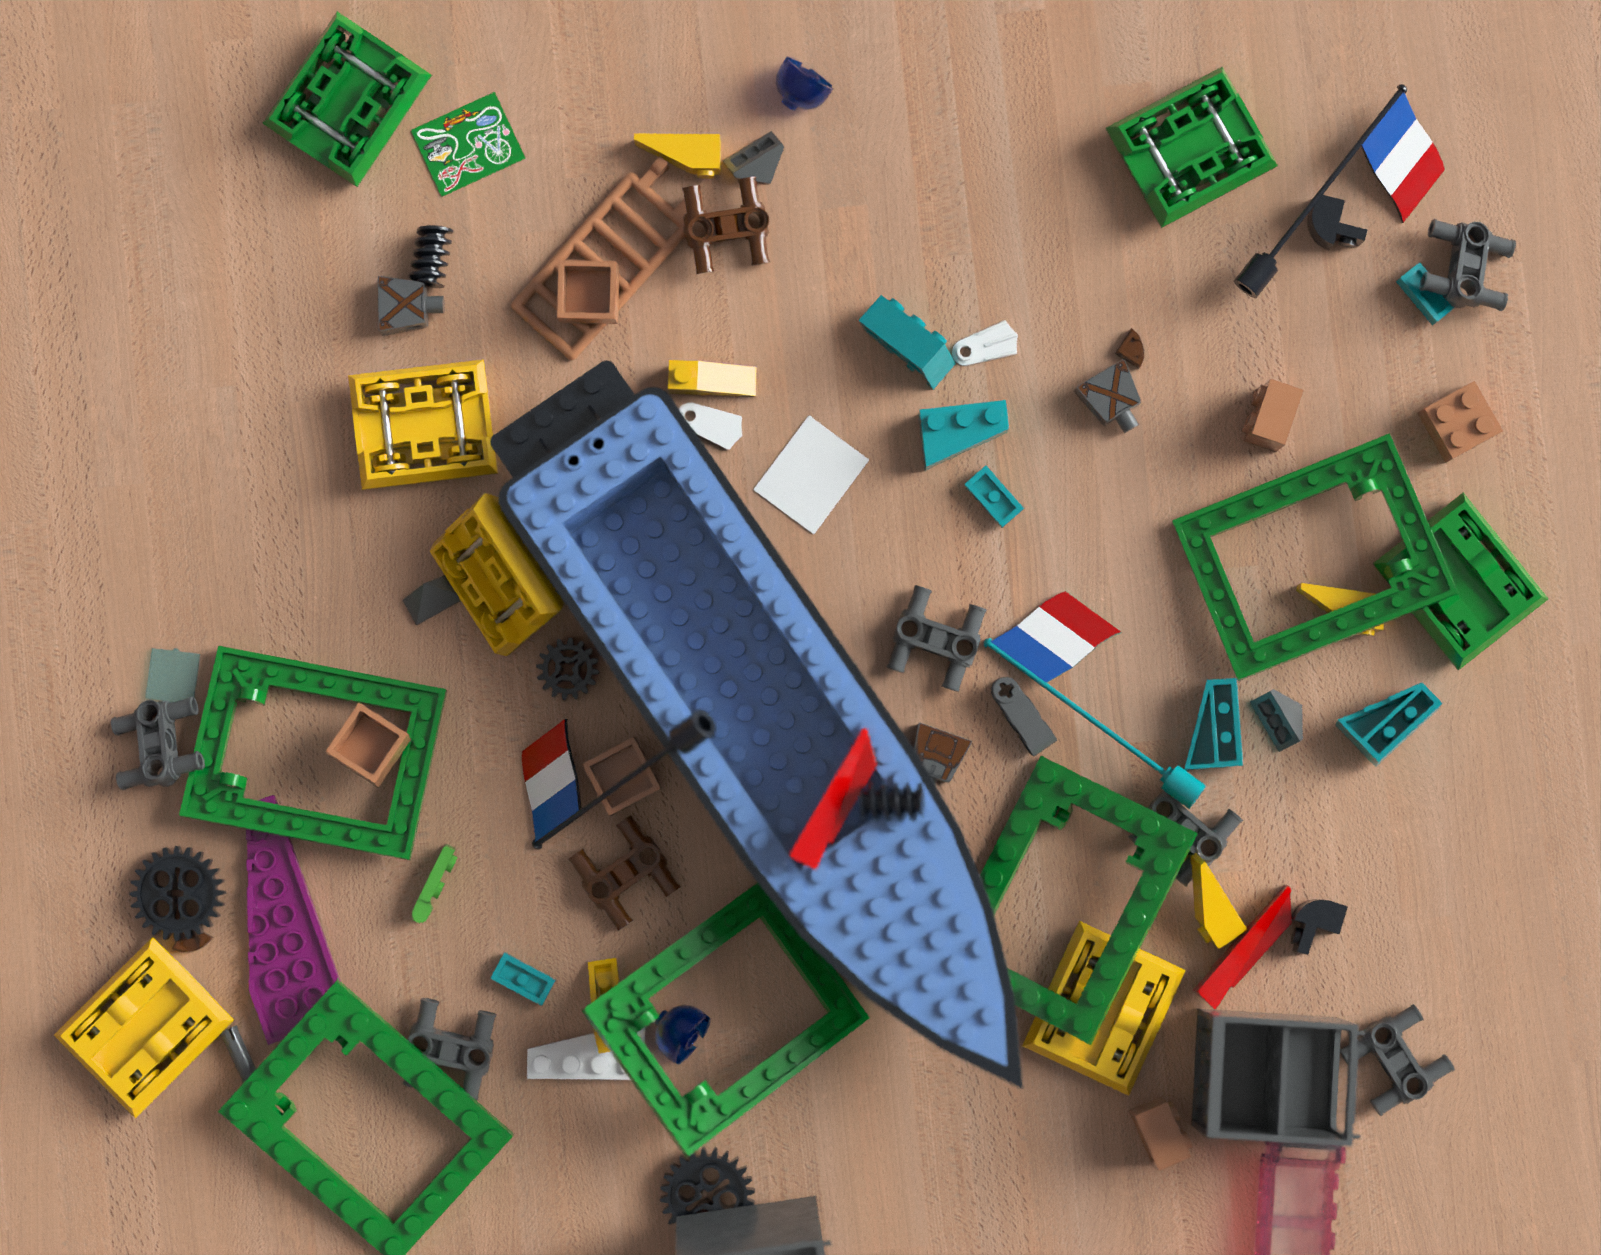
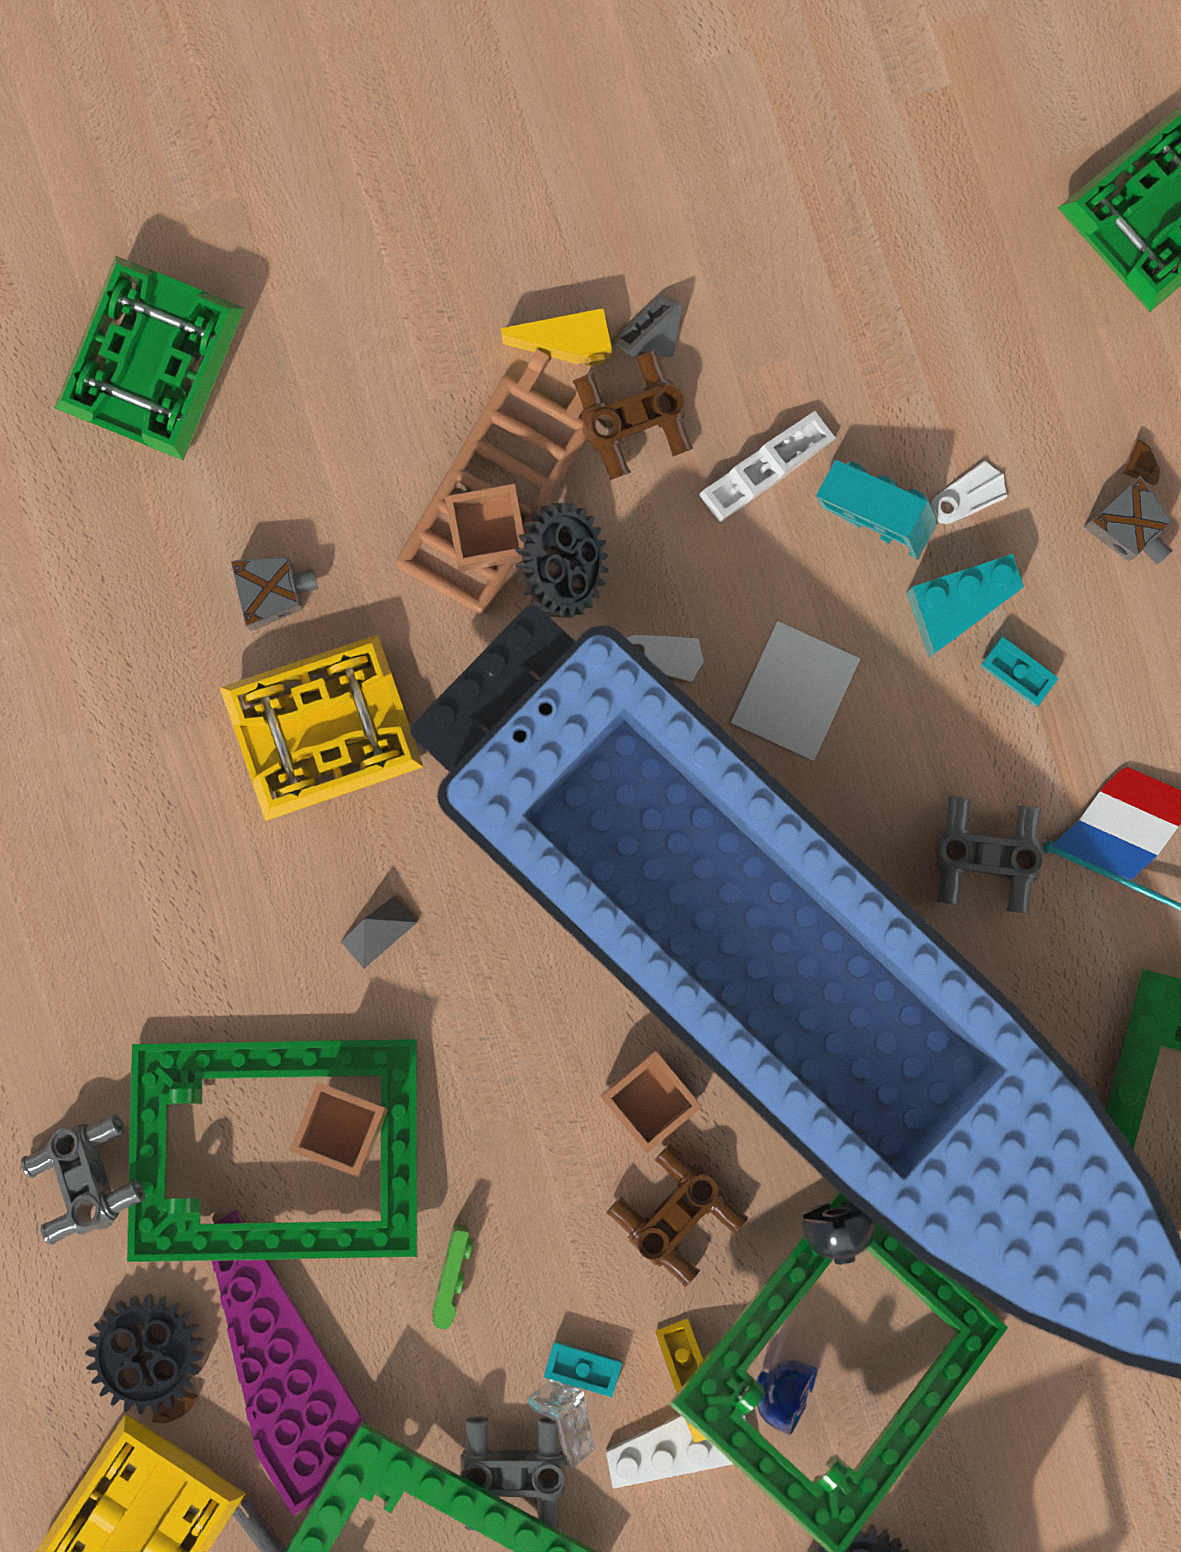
camera: 15 degrees left, 0 degrees up
(172, 675) = (84, 1090): clear light blue piece -> none
(430, 254) = (286, 523): black piece -> none
(468, 144) = (304, 383): green sticker -> none
(496, 576) = (450, 891): yellow piece -> none
(505, 1015) = (569, 1410): none -> clear bracket
(554, 782) = (573, 1128): flag -> none
(555, 679) = (569, 995): black gear -> none
(636, 324) = (561, 560): none -> black gear
(711, 379) = (653, 601): slope -> none
(747, 909) = (838, 1231): none -> black cylinder
(801, 86) = (686, 232): clear blue cylinder -> none
(826, 289) = (767, 466): none -> white slope
(836, 802) = (934, 1089): red wedge -> none
(891, 802) = (1006, 1074): black piece -> none
(940, 751) = (1025, 986): reddish brown torso -> none
(1023, 717) = (1110, 926): dark grey piece -> none

